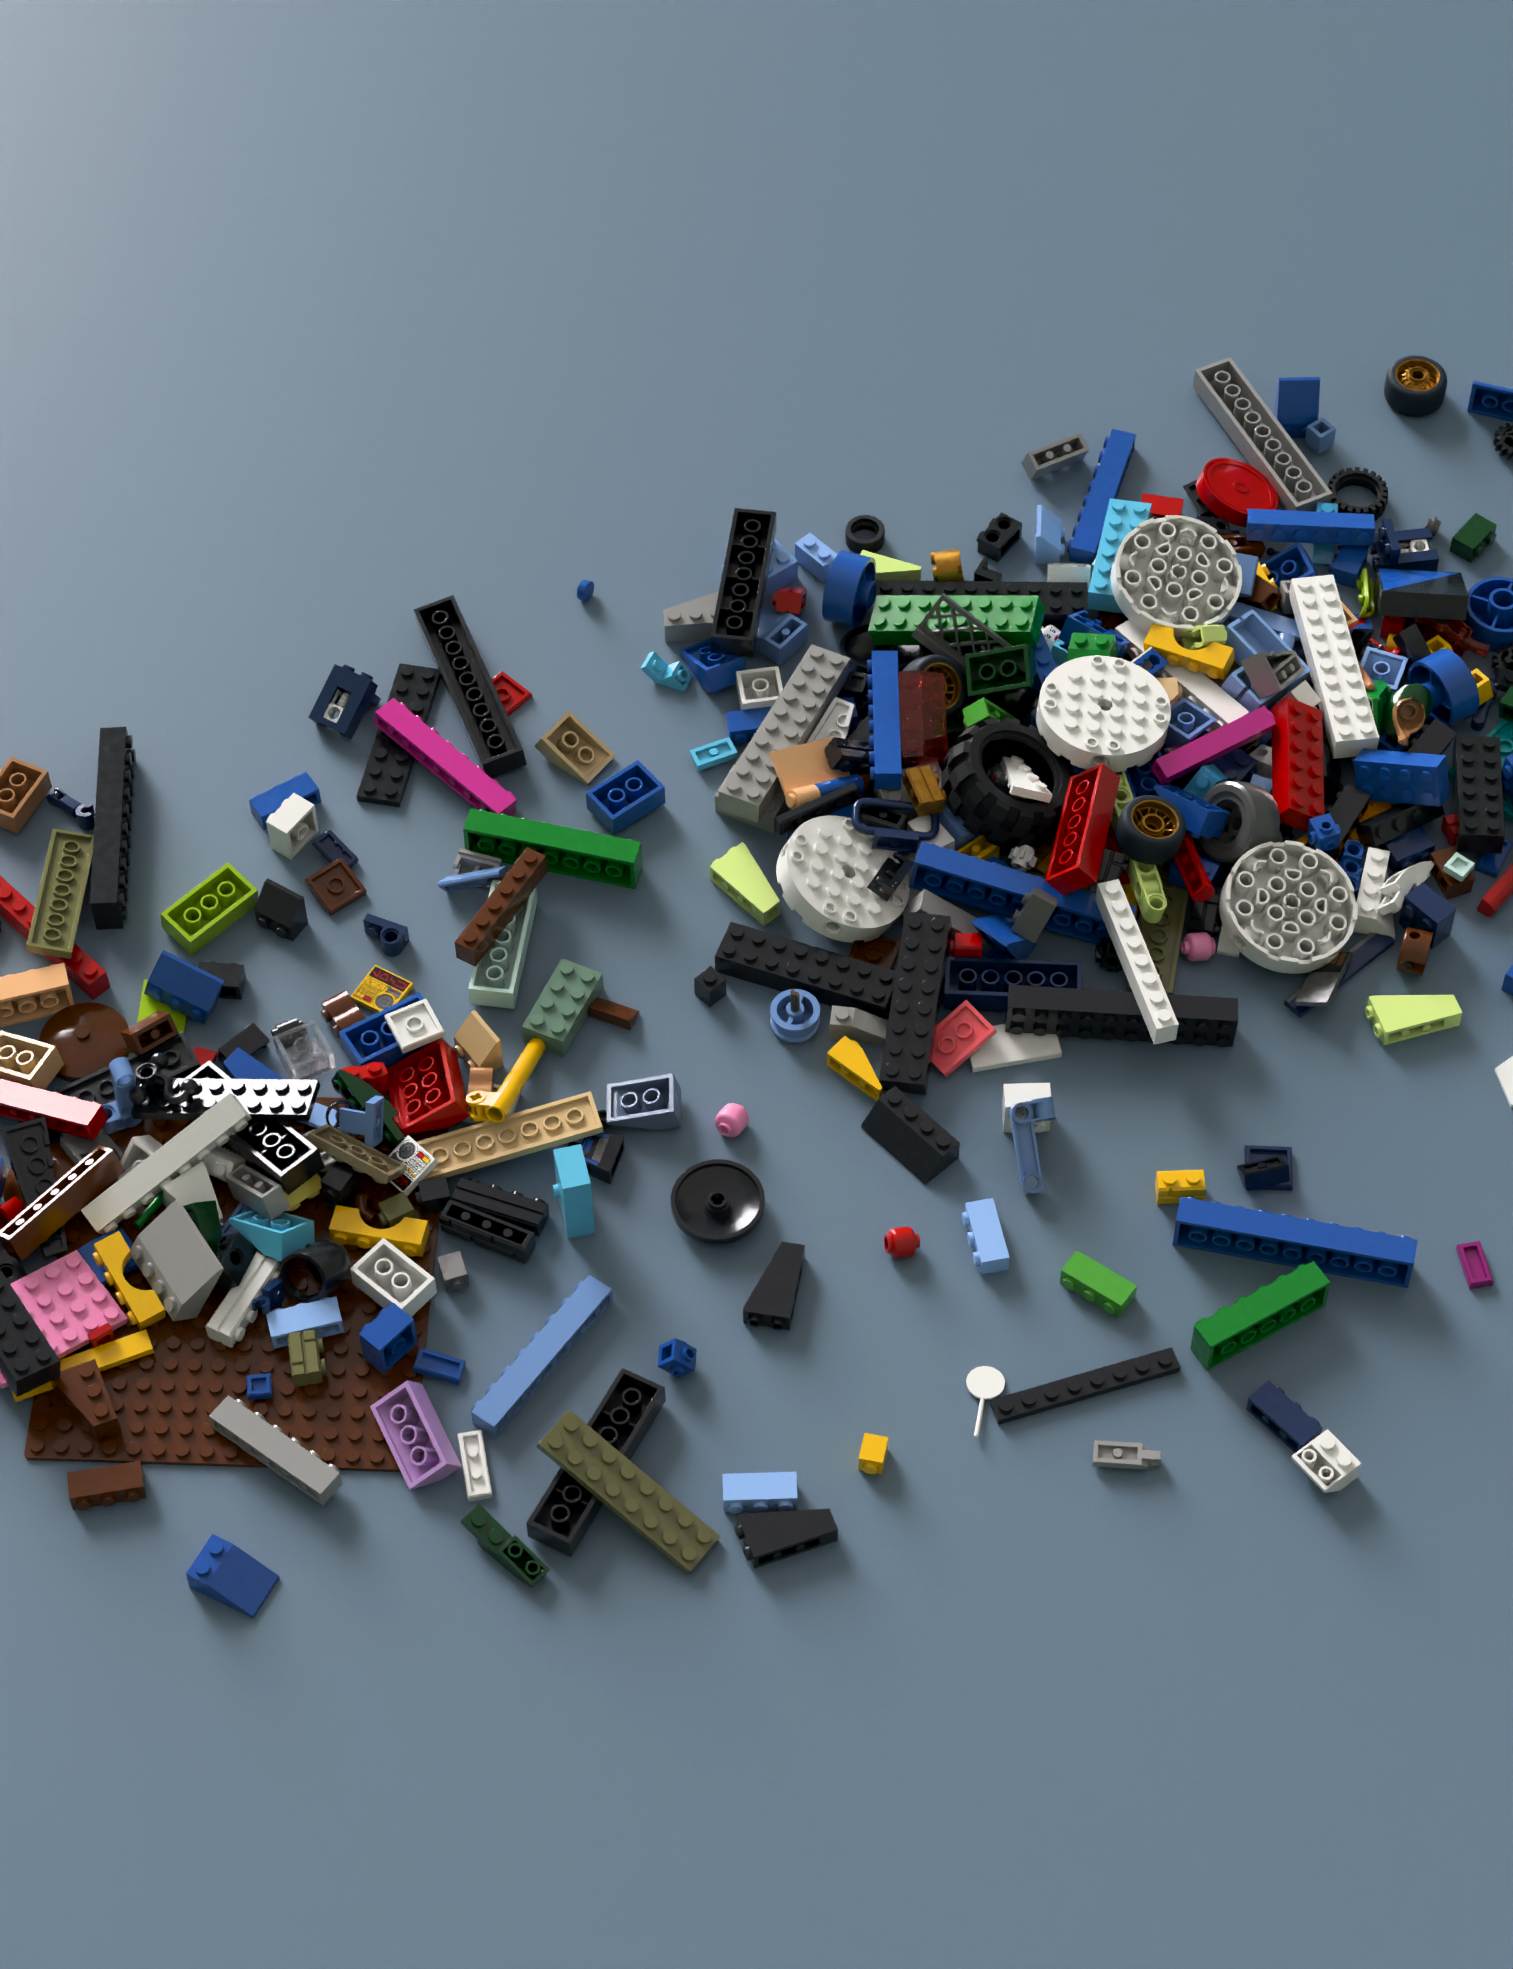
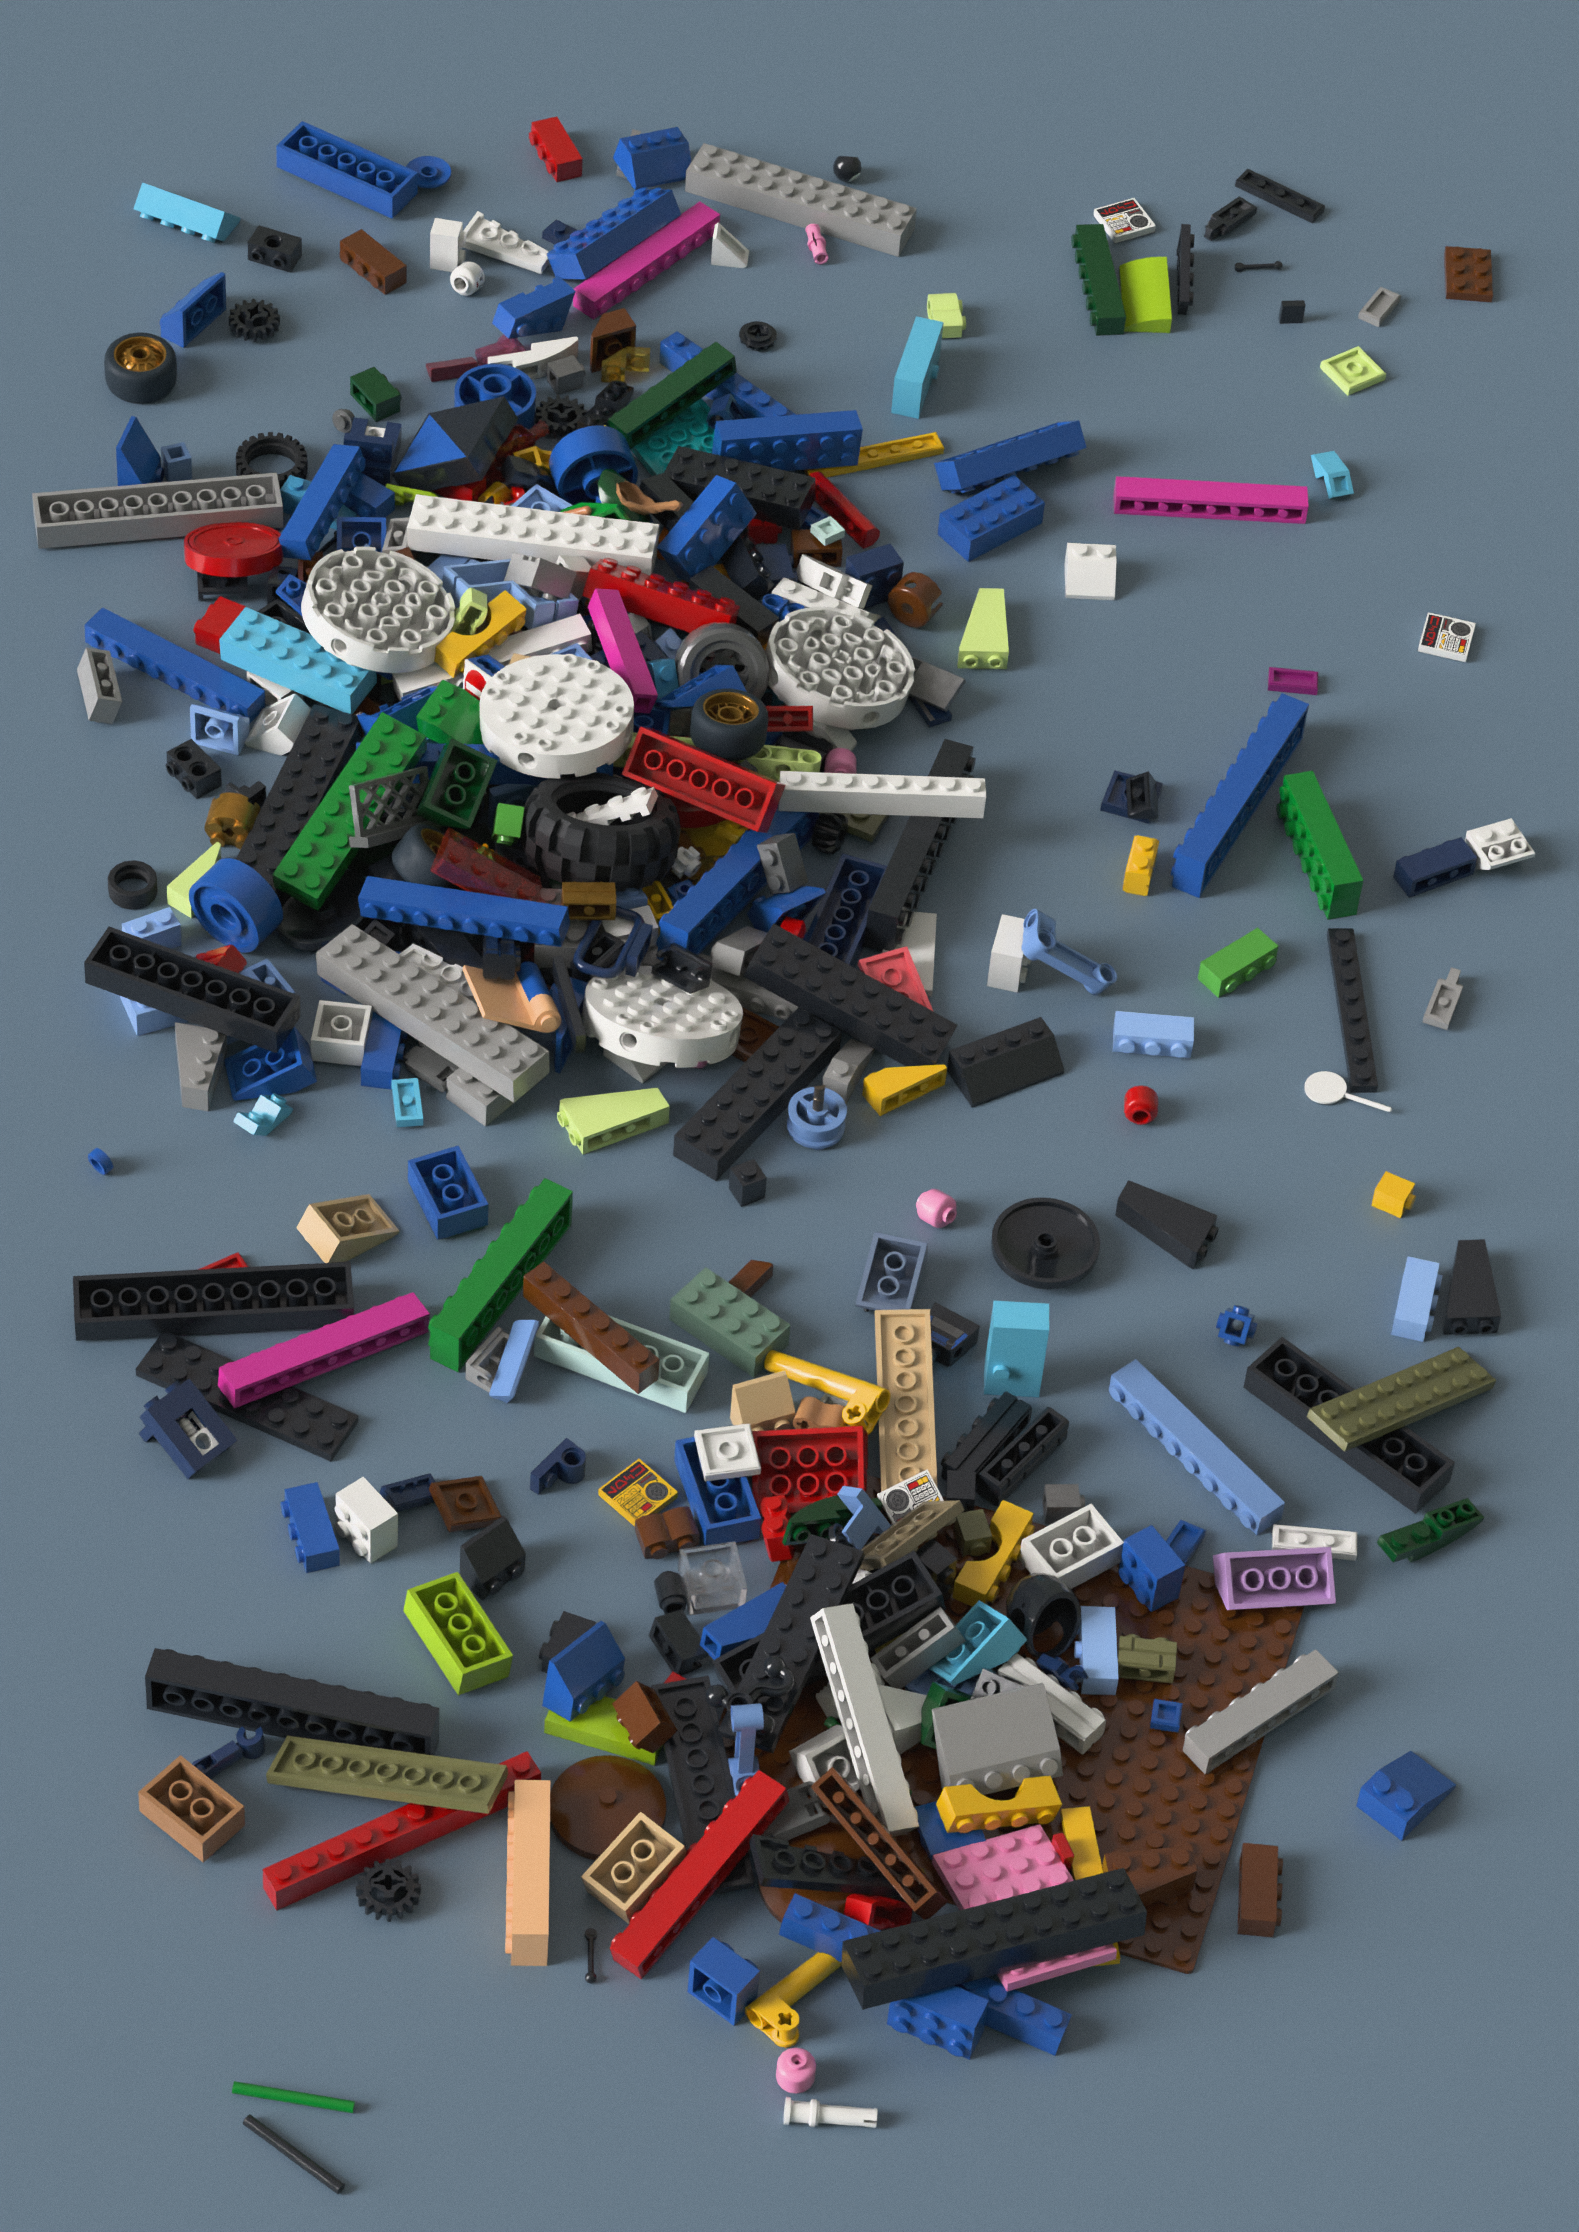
camera: 80 degrees left, 5 degrees down
(1323, 832) = (761, 608): blue brick -> none

